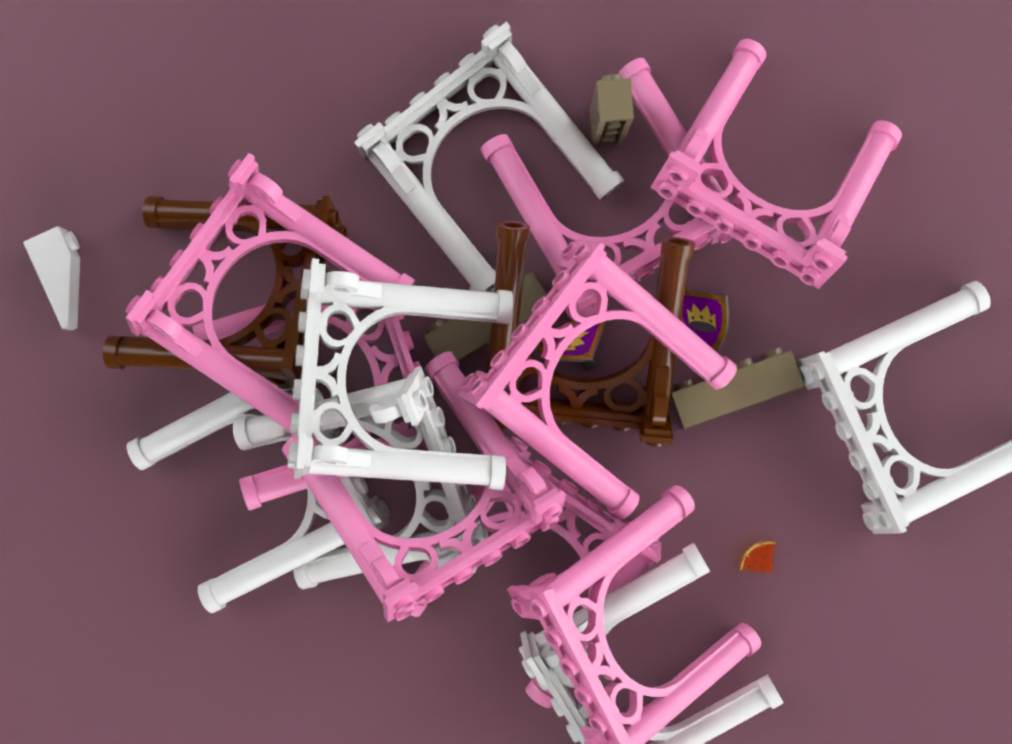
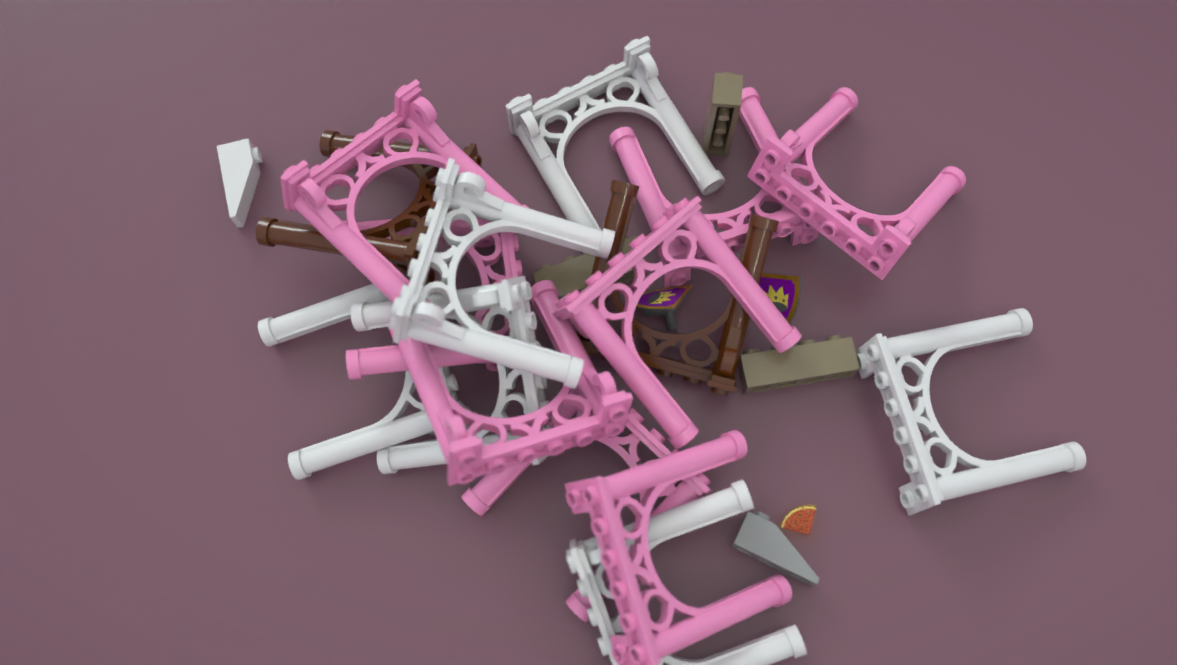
camera: 10 degrees right, 15 degrees down
(727, 593) = (768, 544): none -> light grey slope

